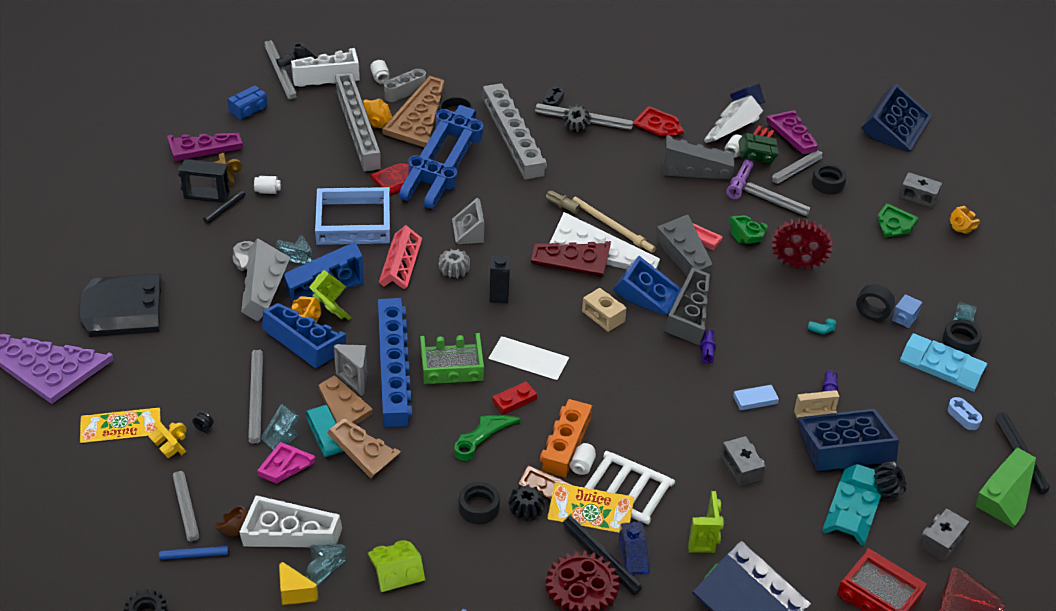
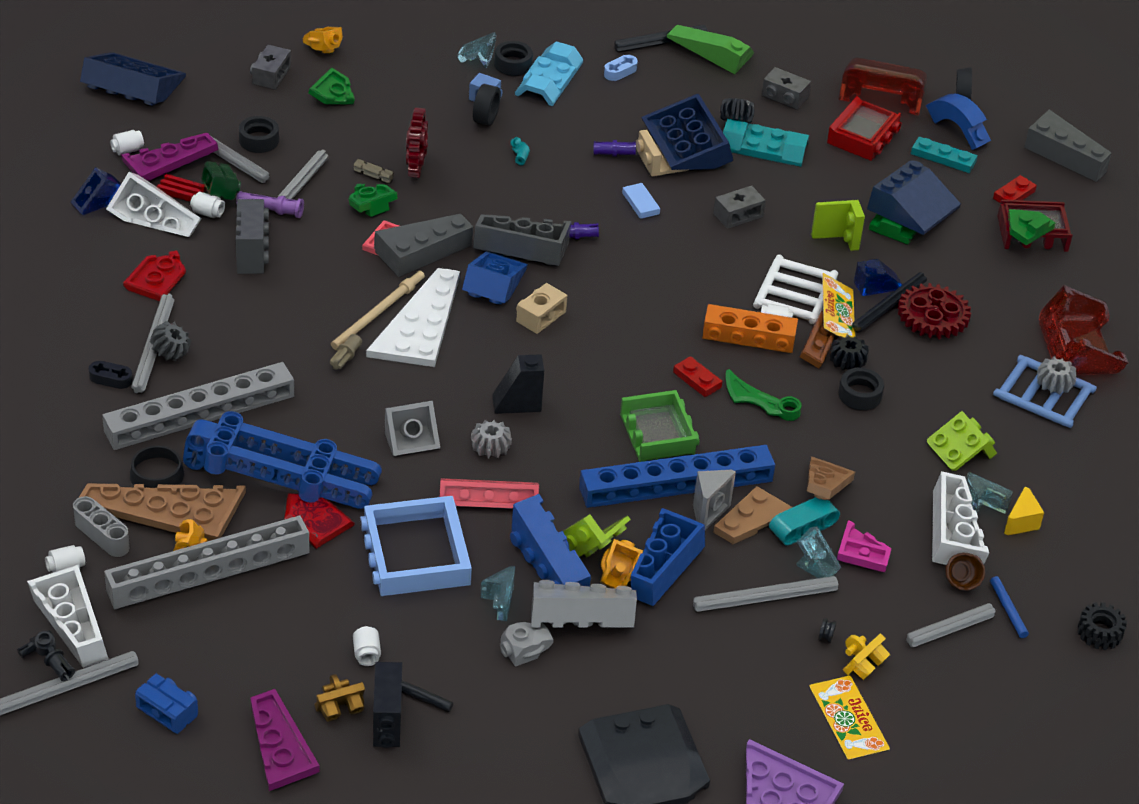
camera: 100 degrees left, 0 degrees up
(529, 358) = (627, 371): white sticker -> none
(581, 258) = (455, 334): dark red wing -> none
(810, 113) = (127, 142): none -> white brick

